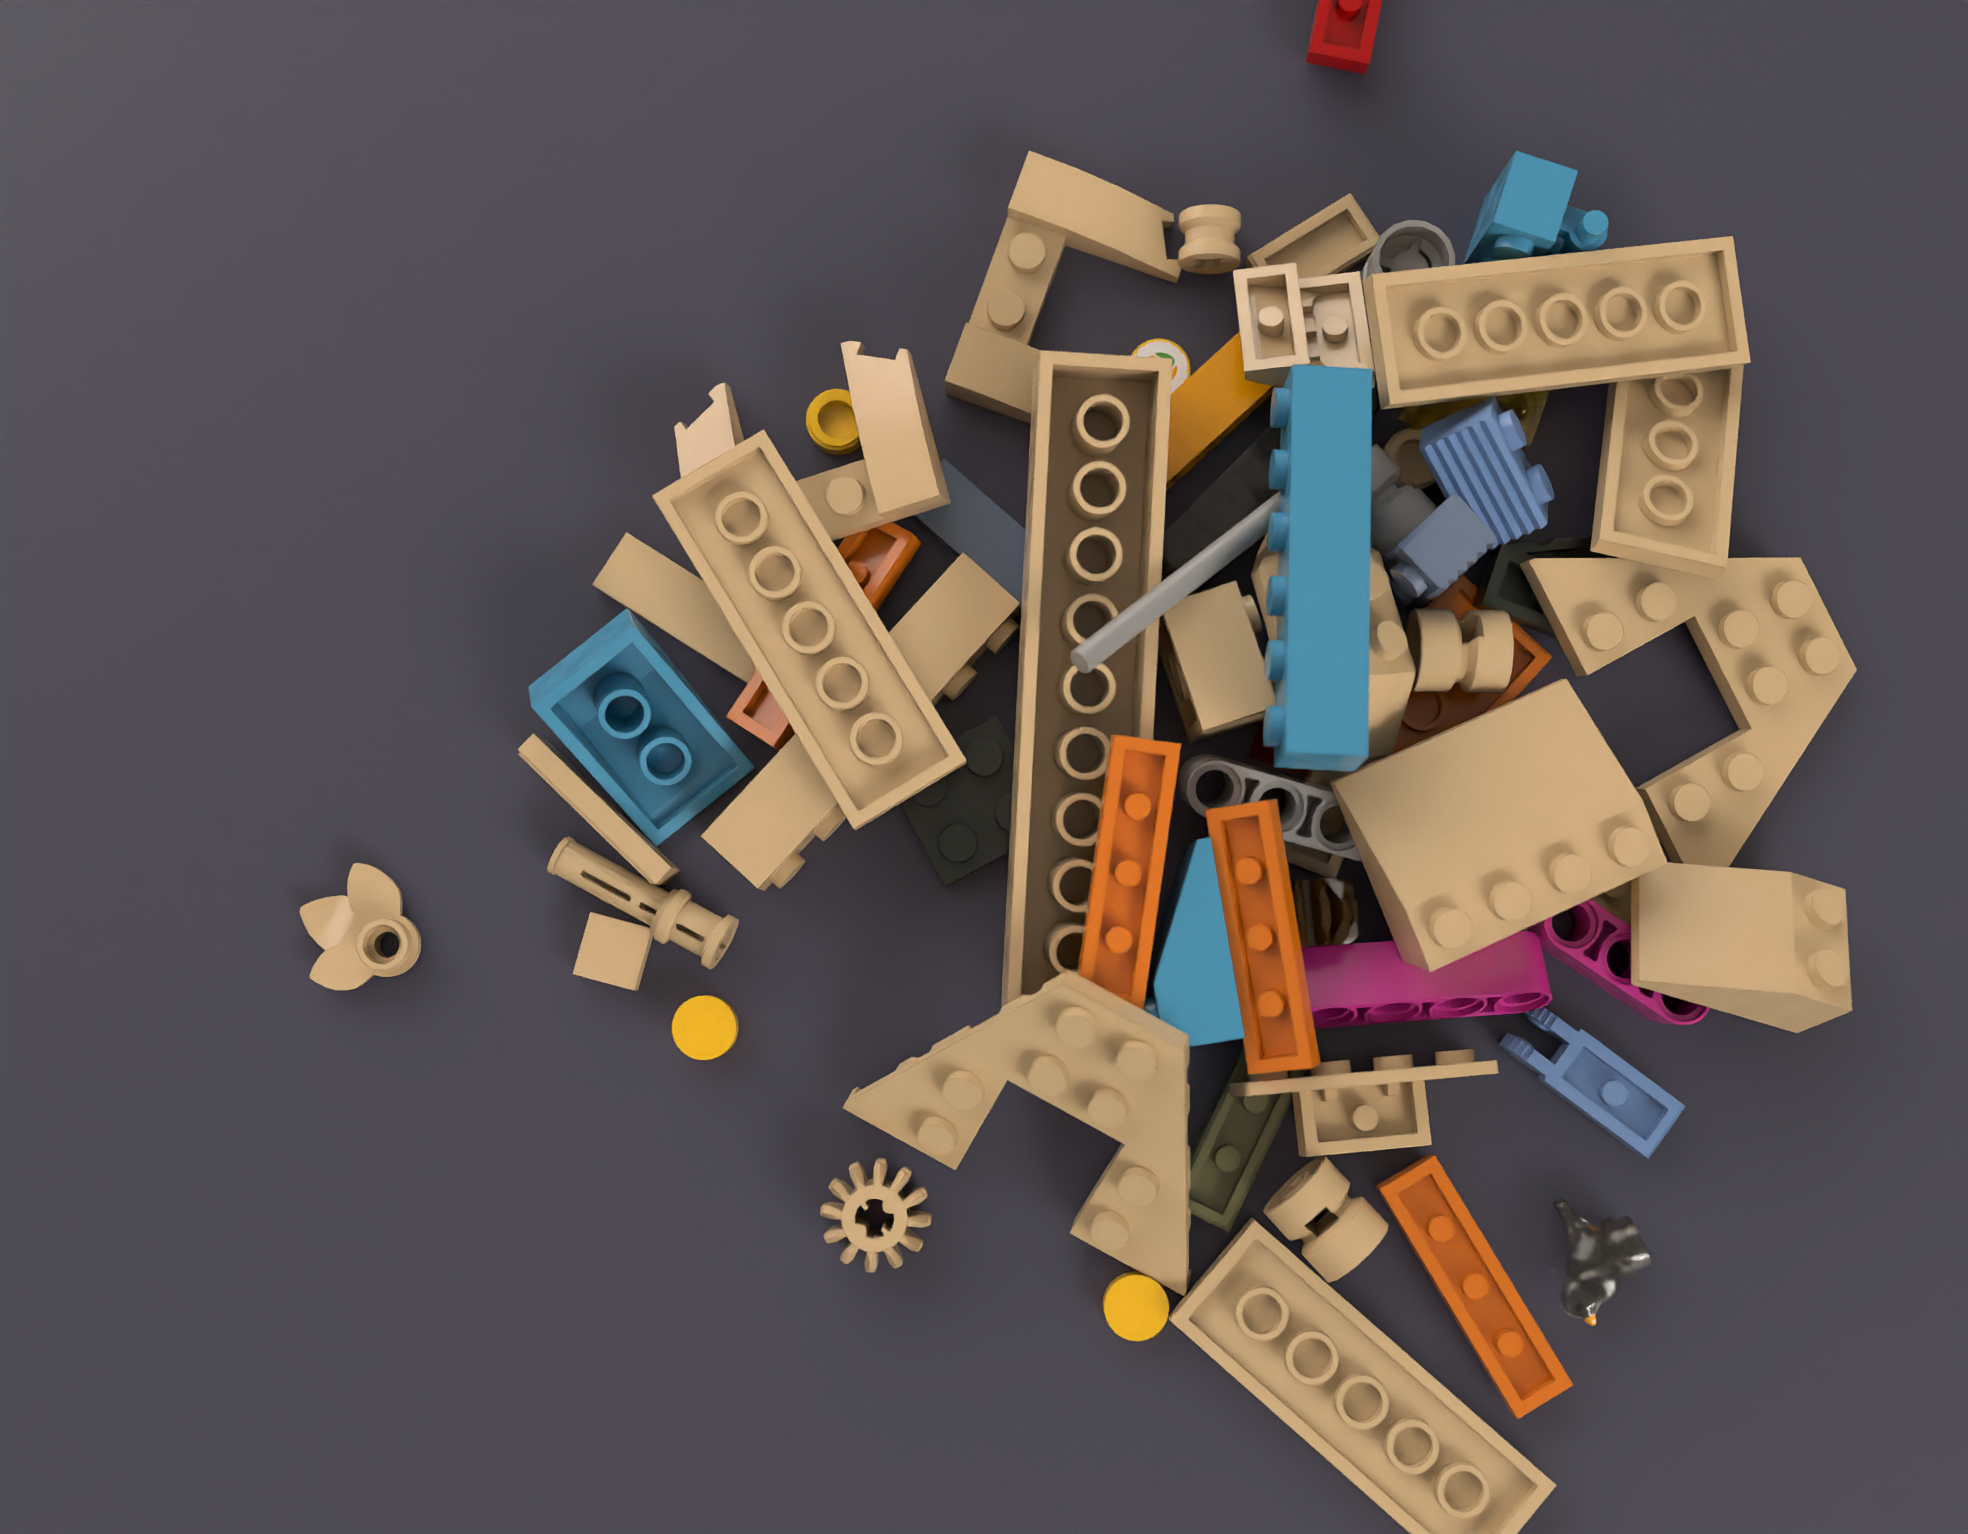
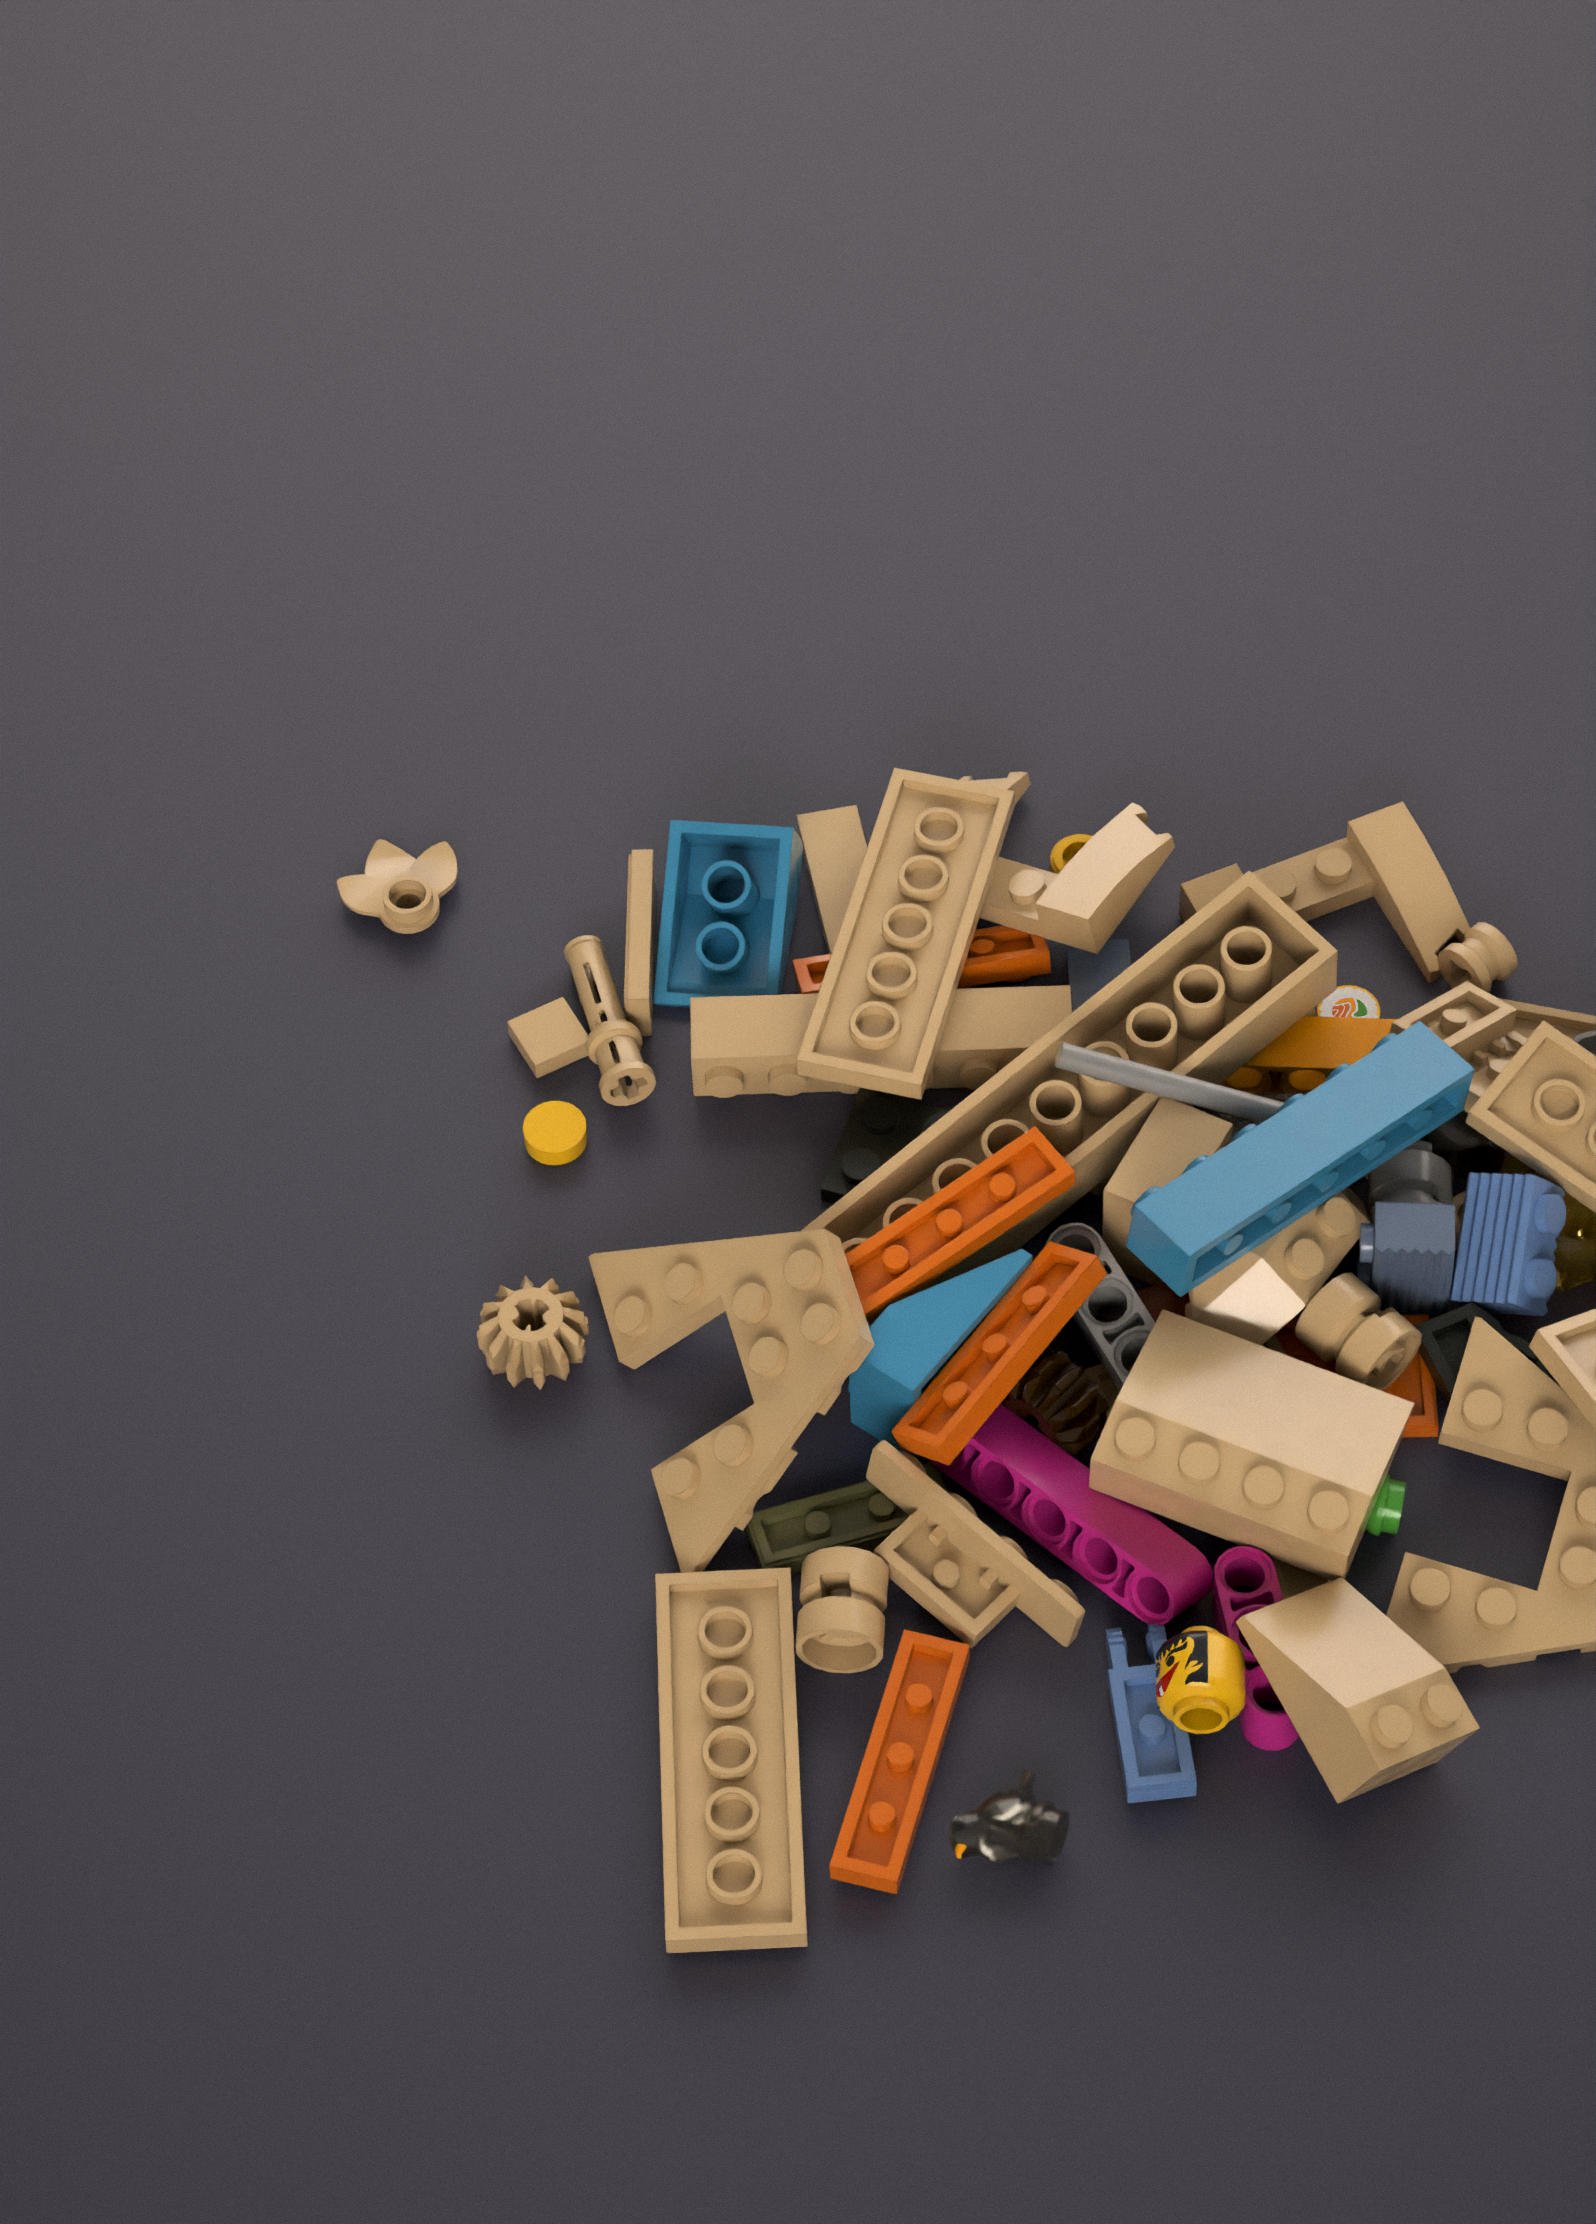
camera: 50 degrees right, 30 degrees down
(1135, 1306) = (639, 1555): yellow tile -> none
(1632, 1039) = (1200, 1680): none -> yellow head

